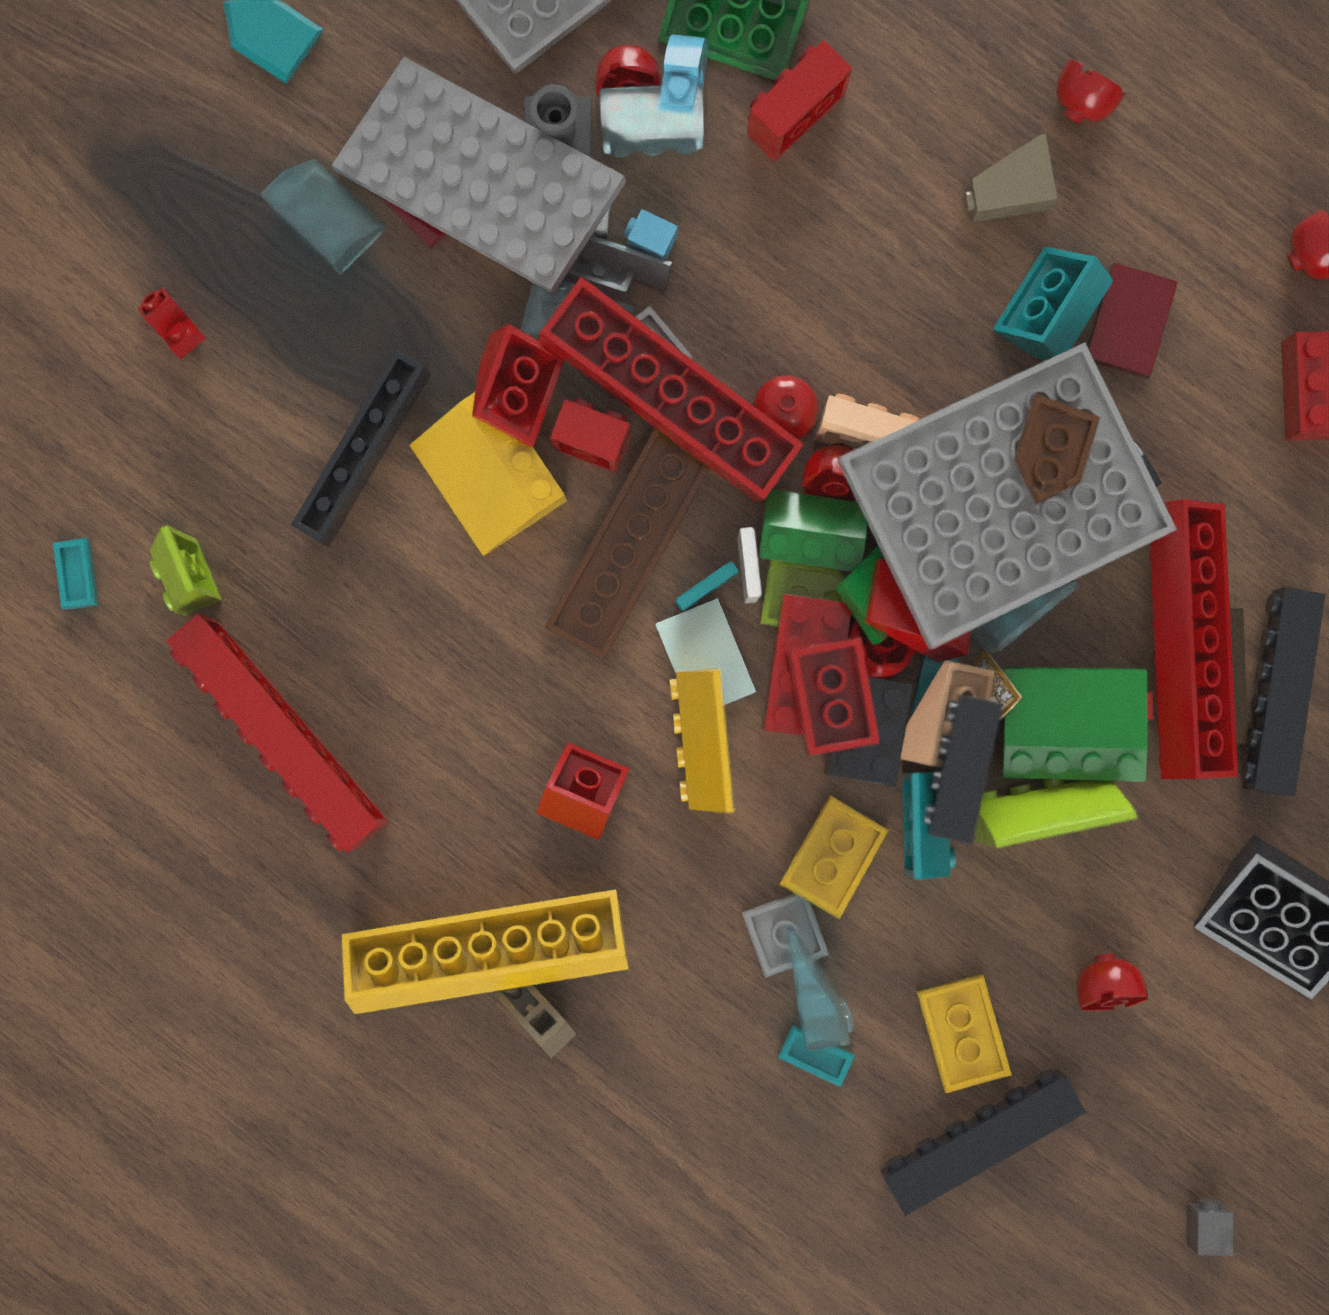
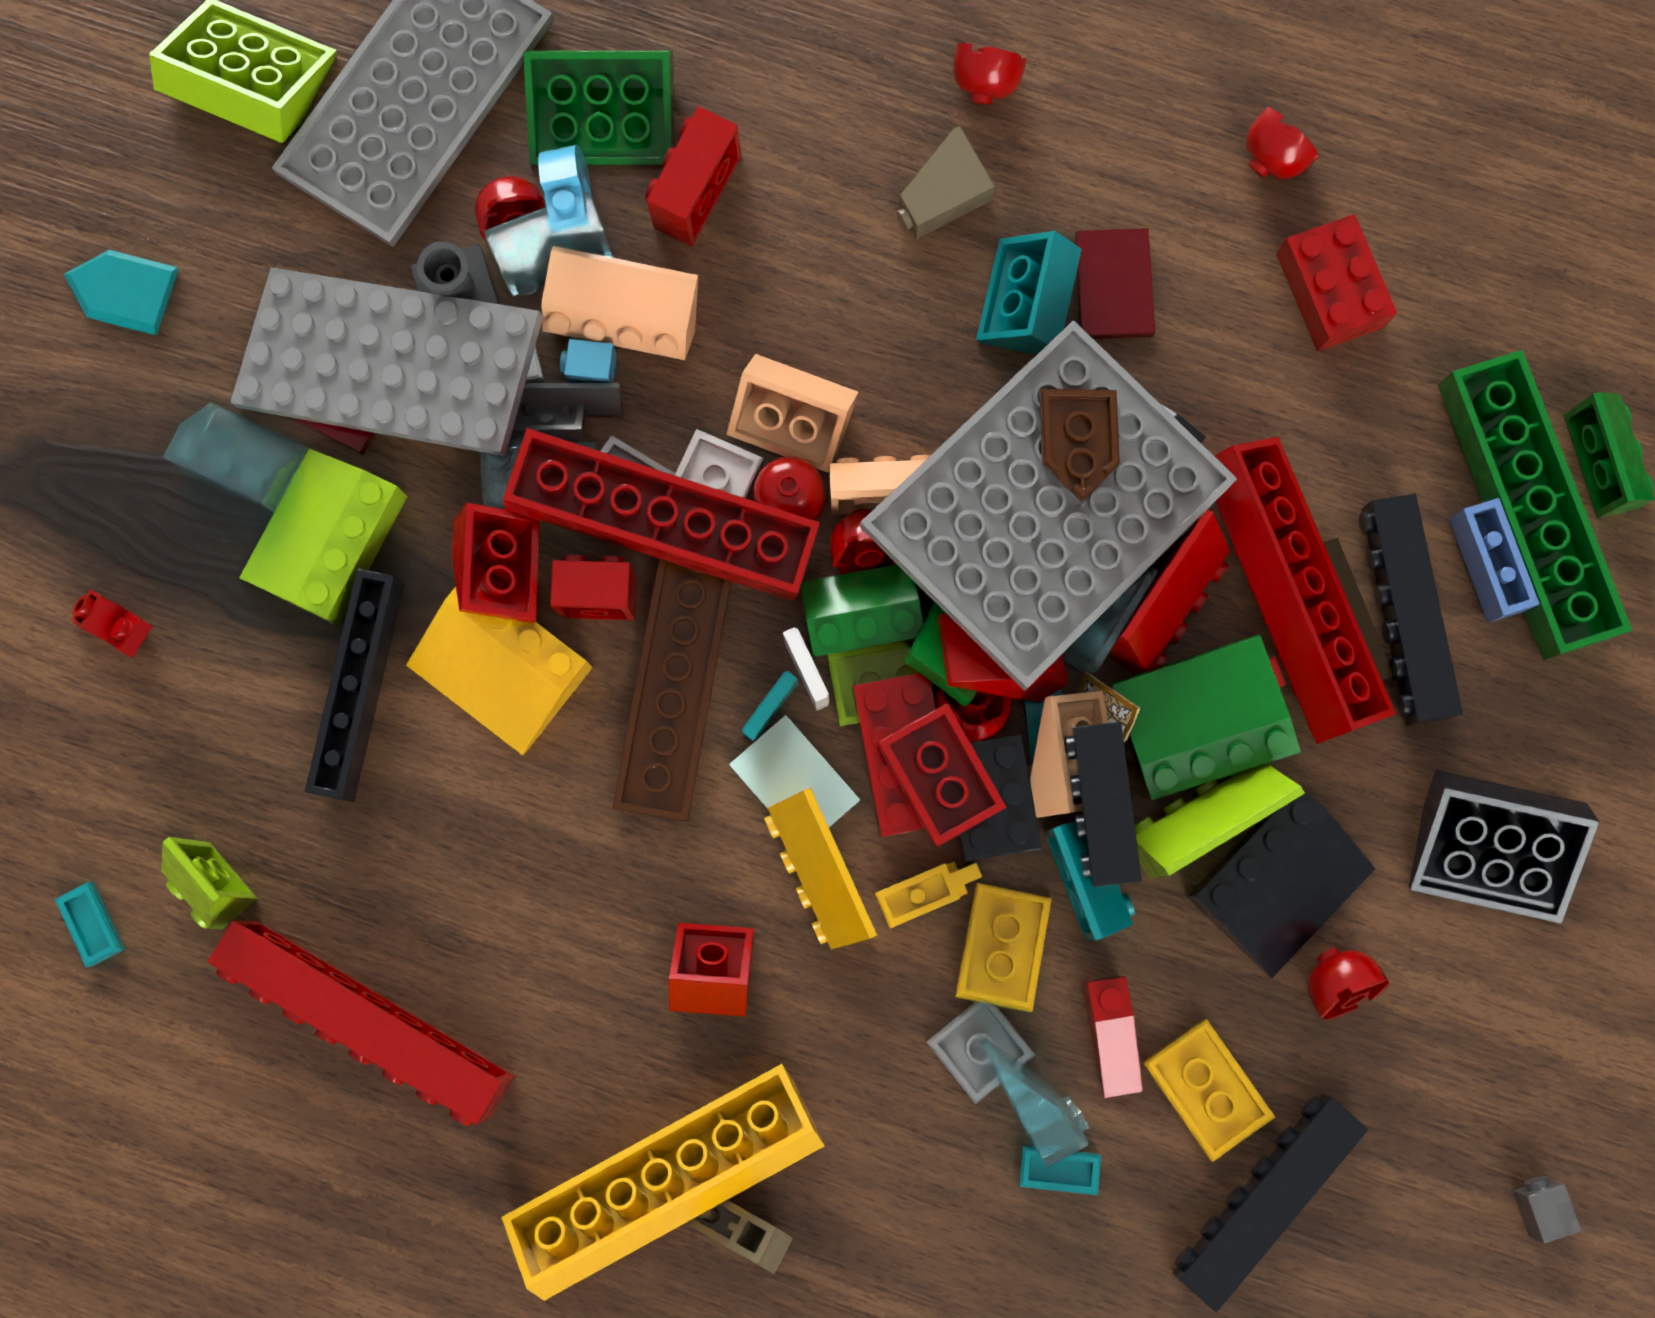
camera: 15 degrees left, 5 degrees down
(375, 308) = (323, 533): none -> lime slope
(696, 192) = (619, 303): none -> light nougat slope
(733, 363) = (719, 465): none -> white tile
(784, 788) = (925, 892): none -> yellow hinge
(811, 338) = (791, 412): none -> light nougat slope
(900, 960) = (1113, 1035): none -> slope
(1083, 610) = (1172, 596): none -> red slope
(1088, 884) = (1282, 882): none -> black slope

